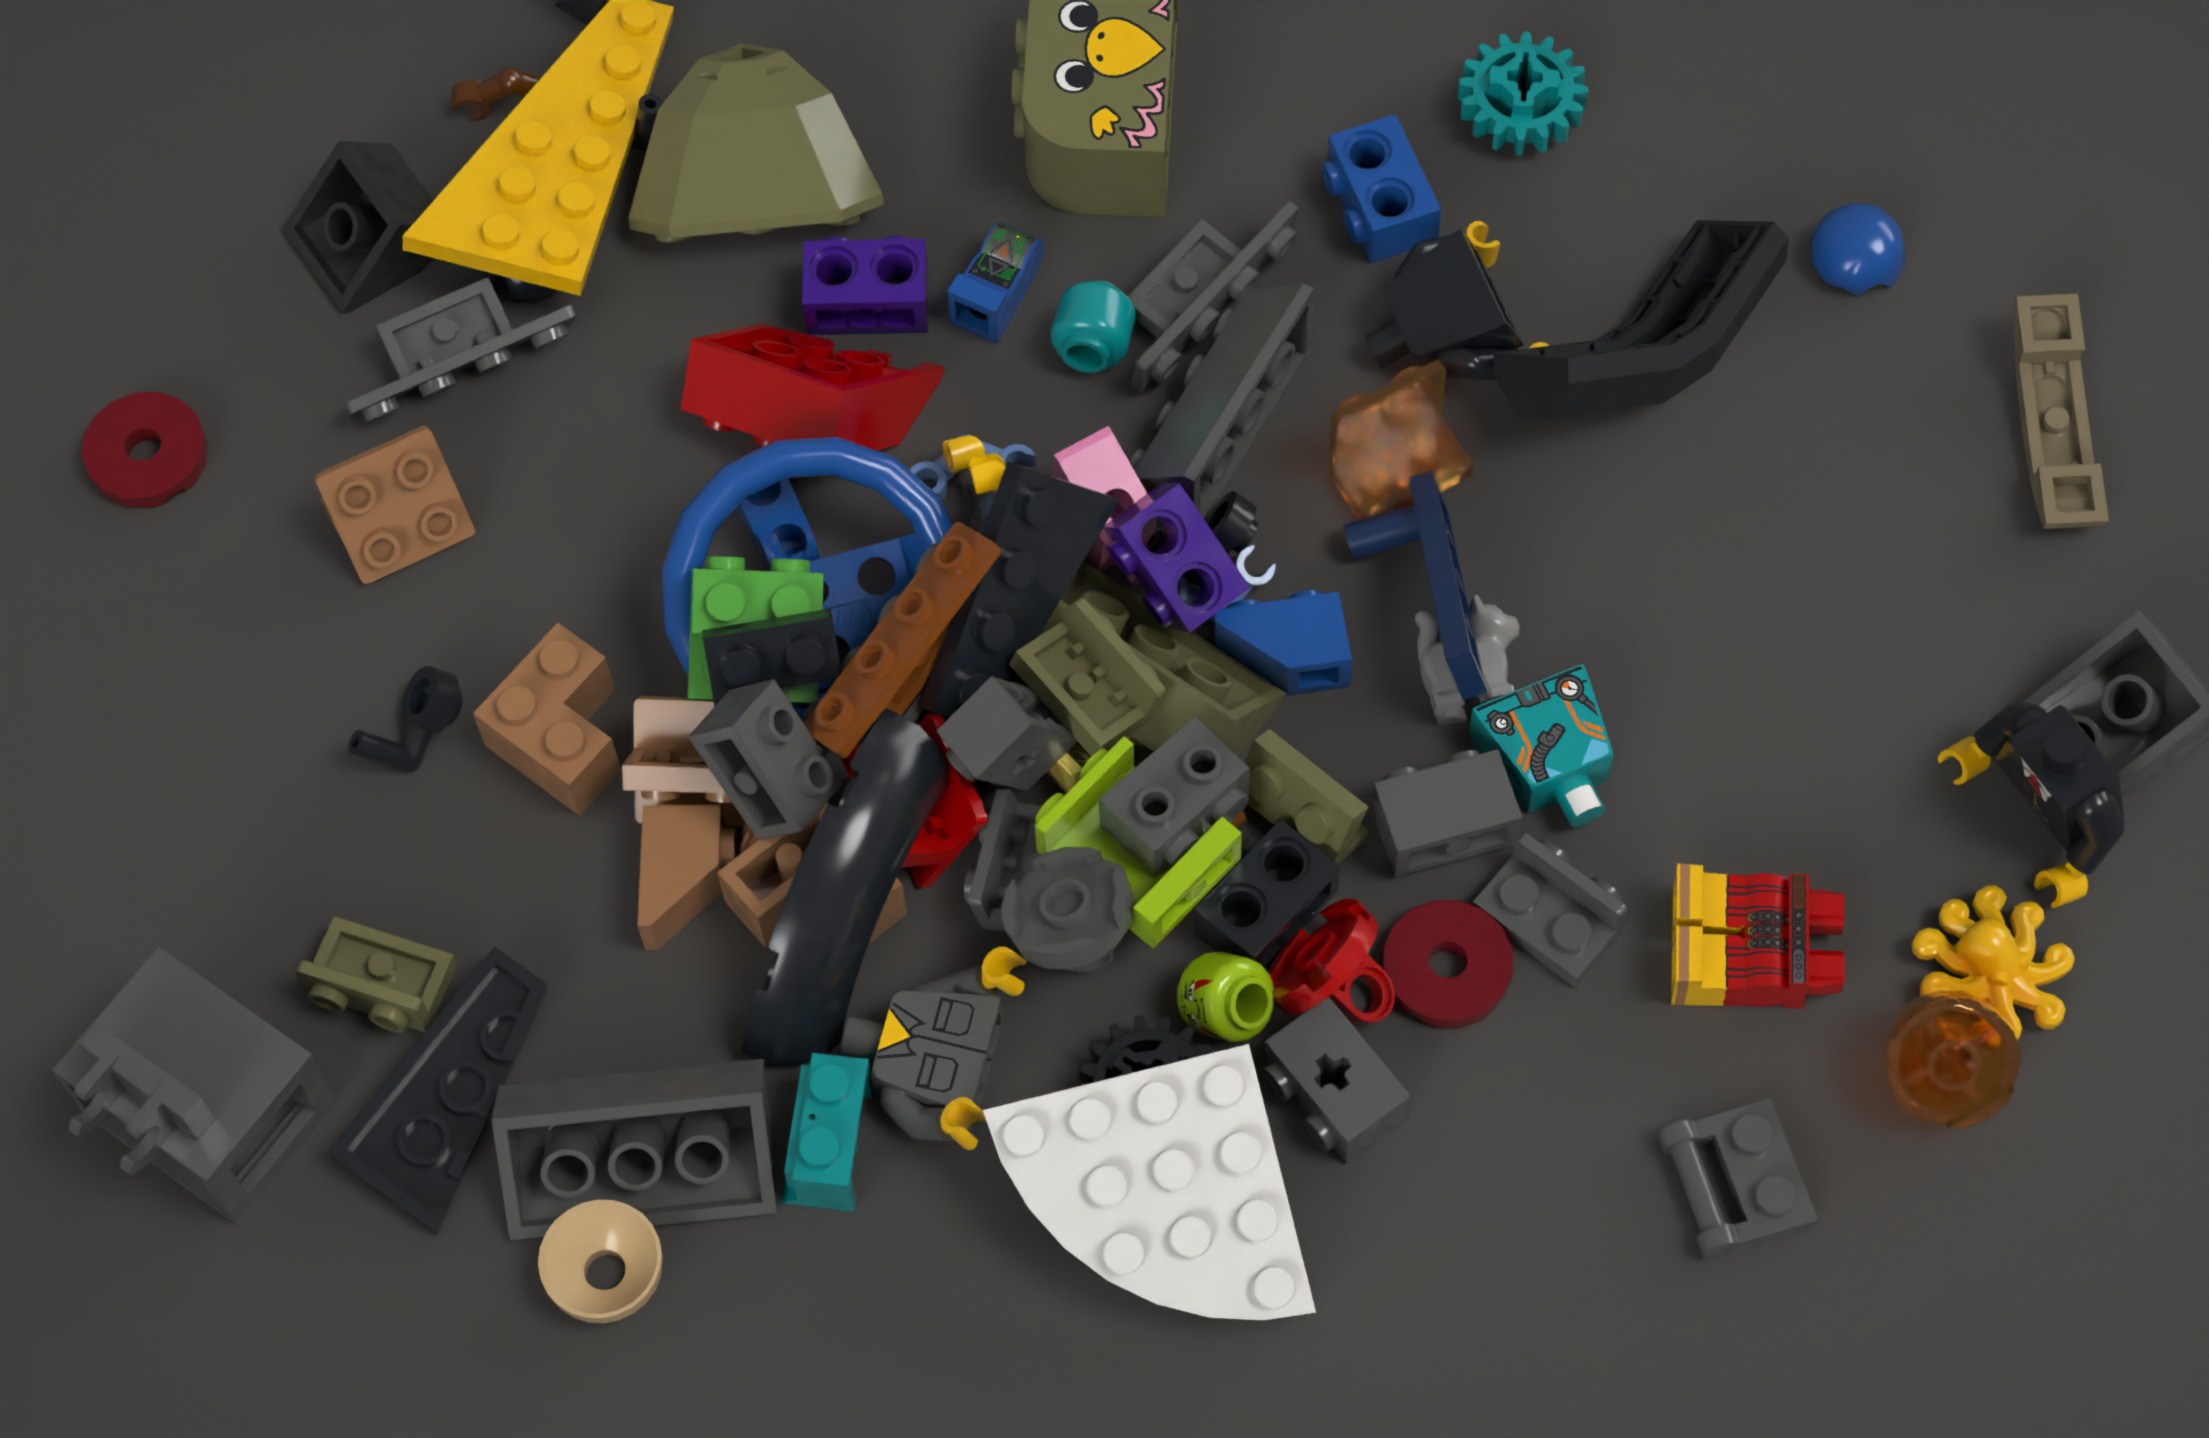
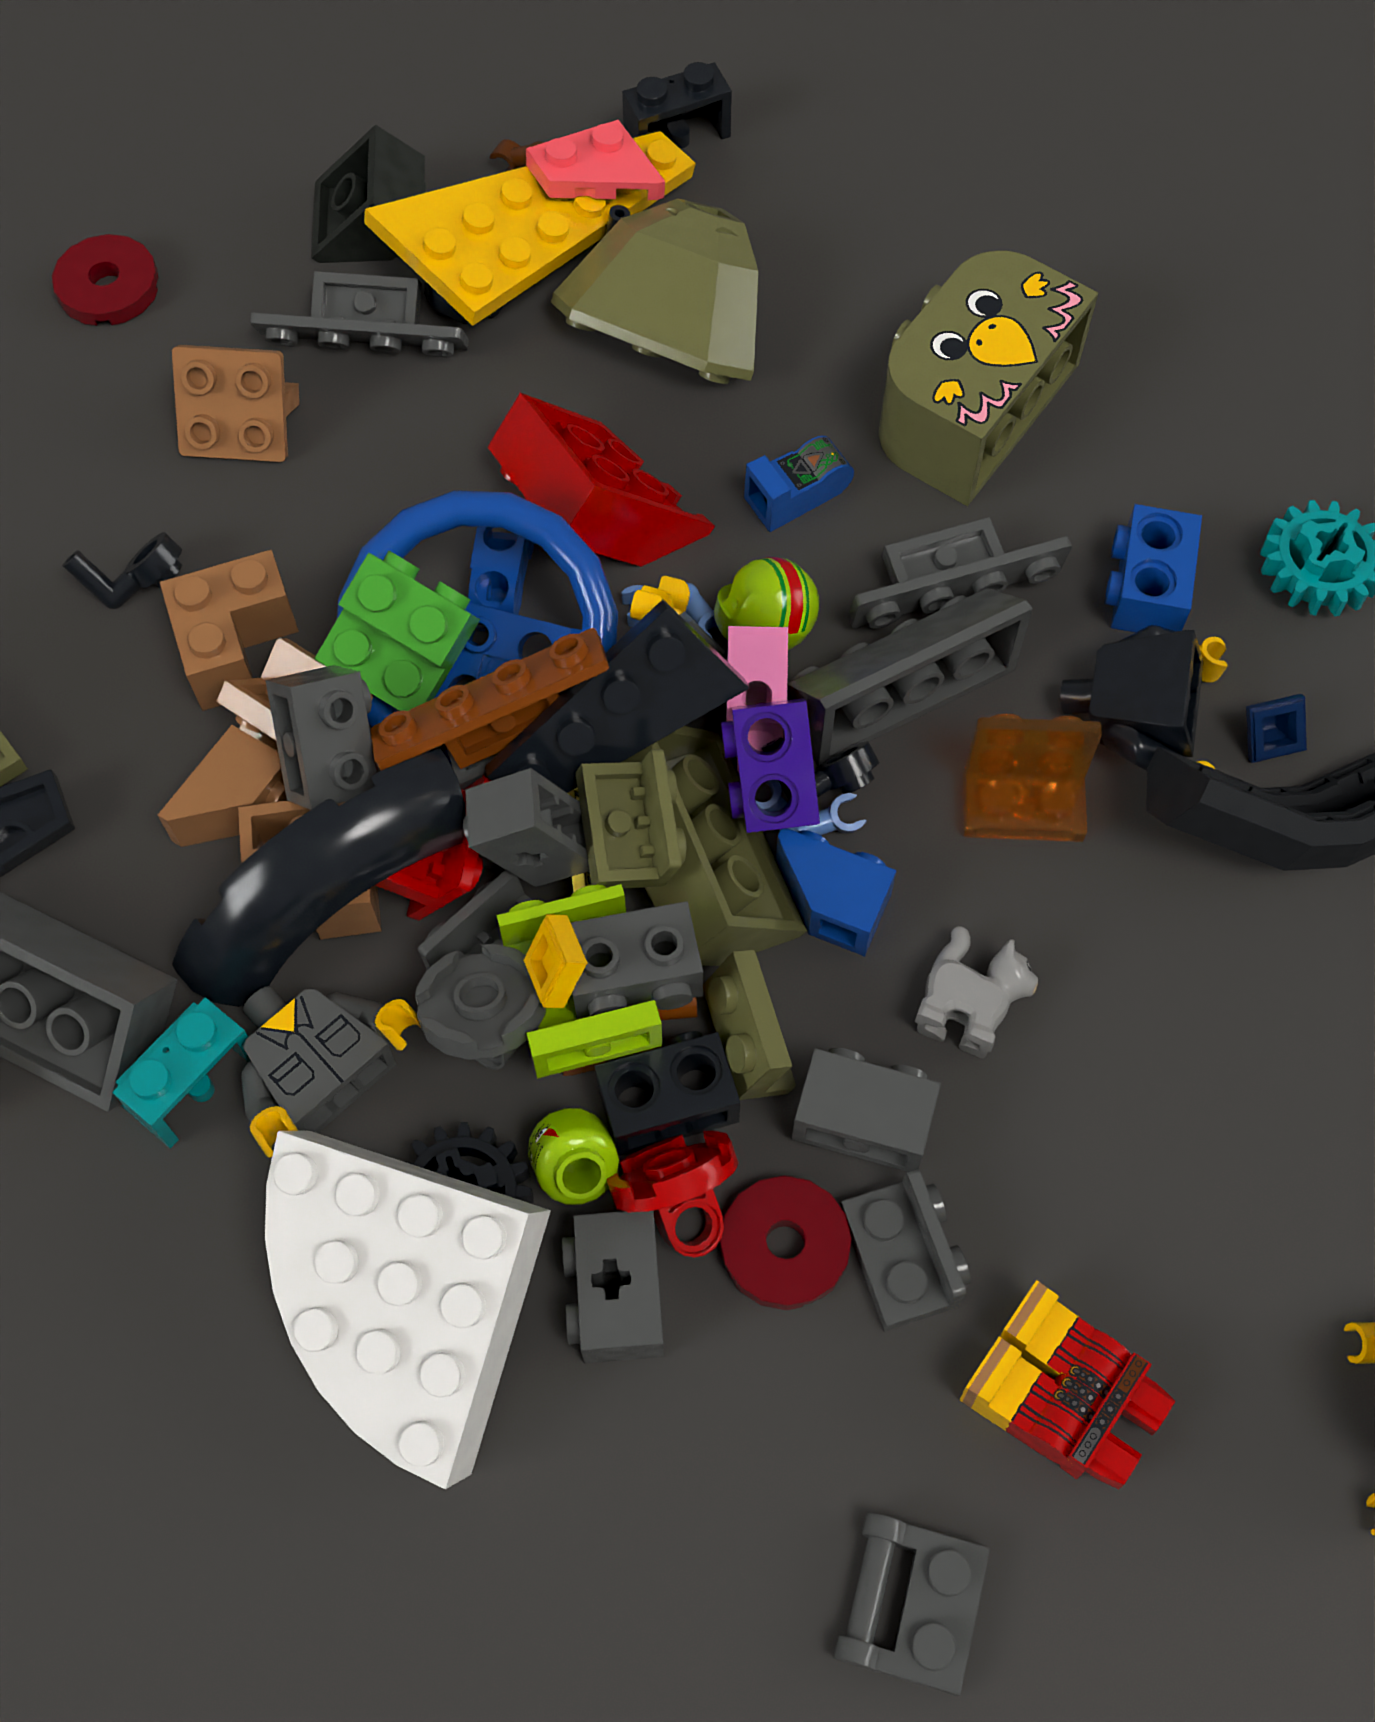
camera: 30 degrees right, 0 degrees up
(590, 65) = (594, 164): none -> coral wing
(784, 648) = (388, 657): black plate -> none
(865, 300) = (693, 432): dark purple brick -> none
(1056, 410) = (769, 595): none -> lime helmet
(1093, 326) = (846, 553): teal head -> none
(1119, 831) = (555, 961): none -> yellow tile
(1431, 523) = (1013, 864): dark blue piece -> none
(1549, 743) = (996, 1104): teal torso -> none
(1577, 277) = (1276, 728): none -> dark blue slope
(1951, 1059) = (1179, 1626): clear orange cylinder -> none
(1992, 960) = (1281, 1553): yellow animal -> none

